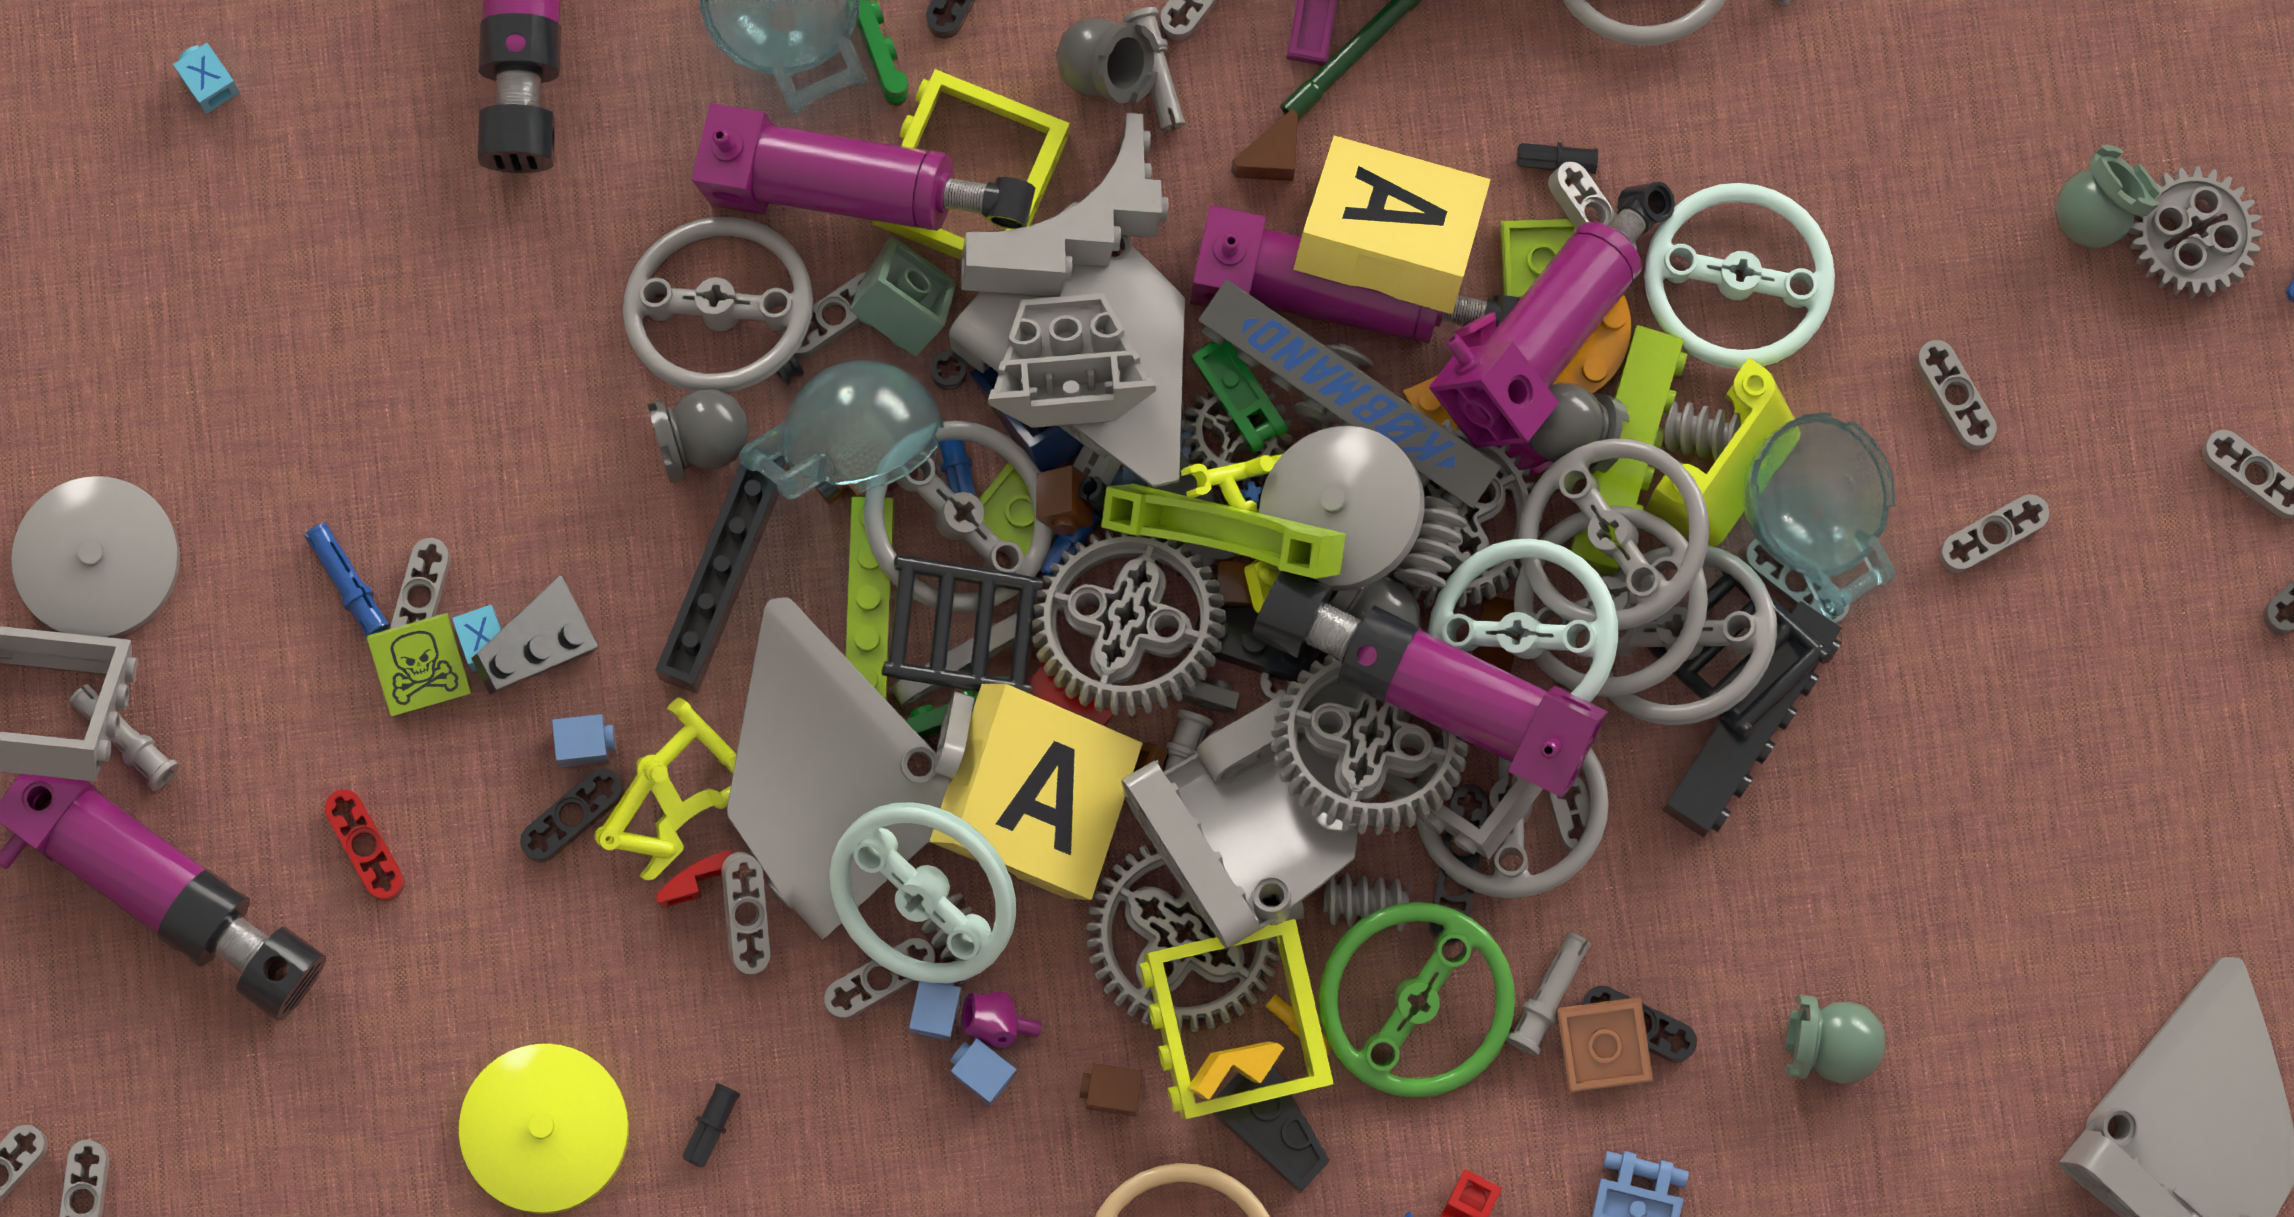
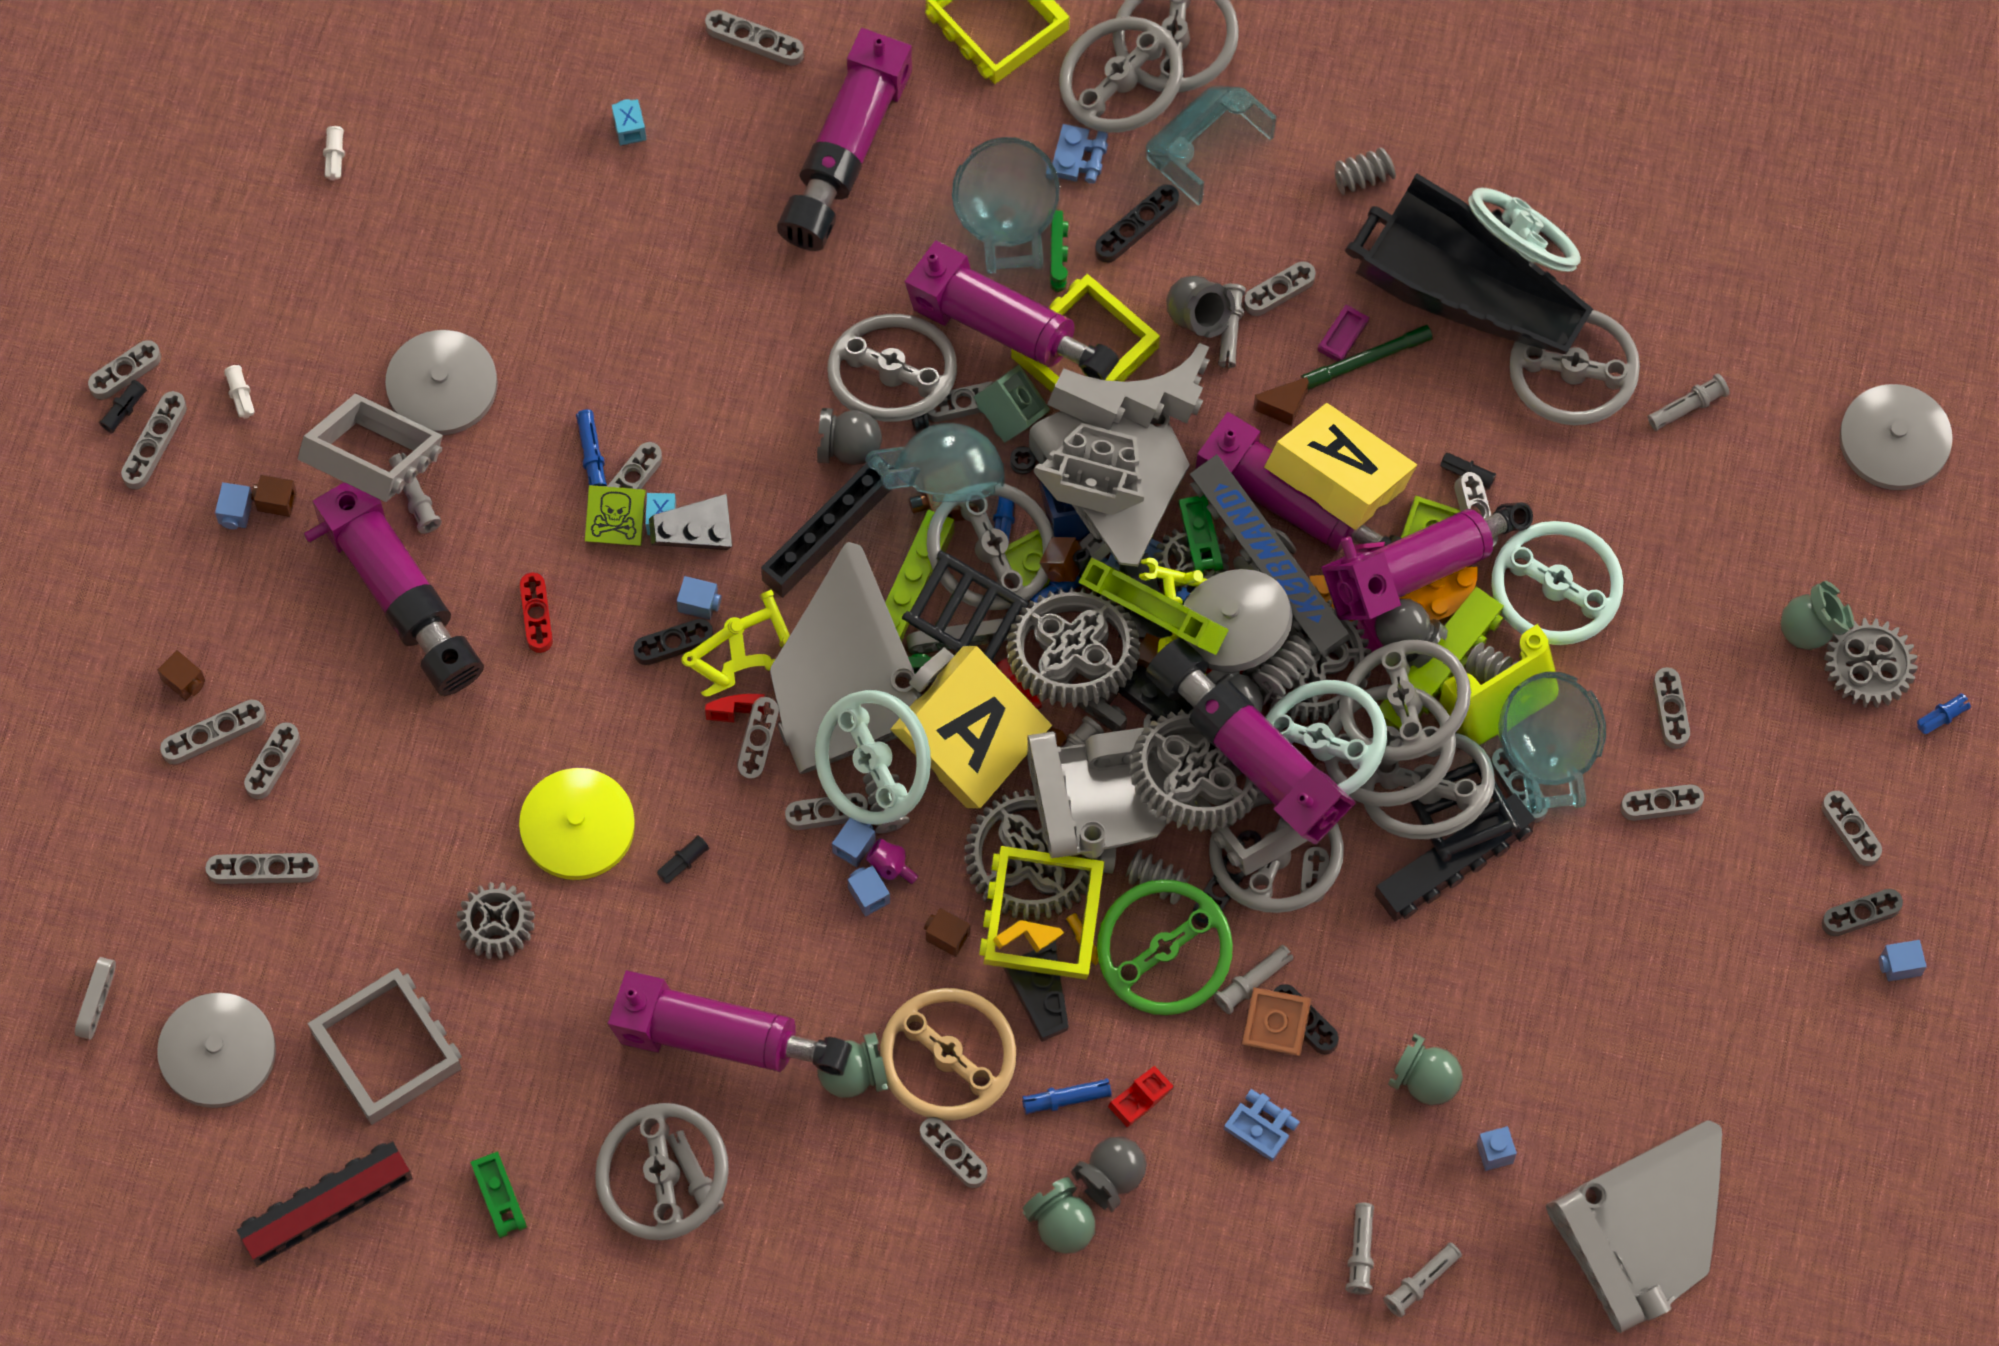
camera: 25 degrees right, 10 degrees down
(1964, 1109) = (1496, 1148): none -> medium blue brick

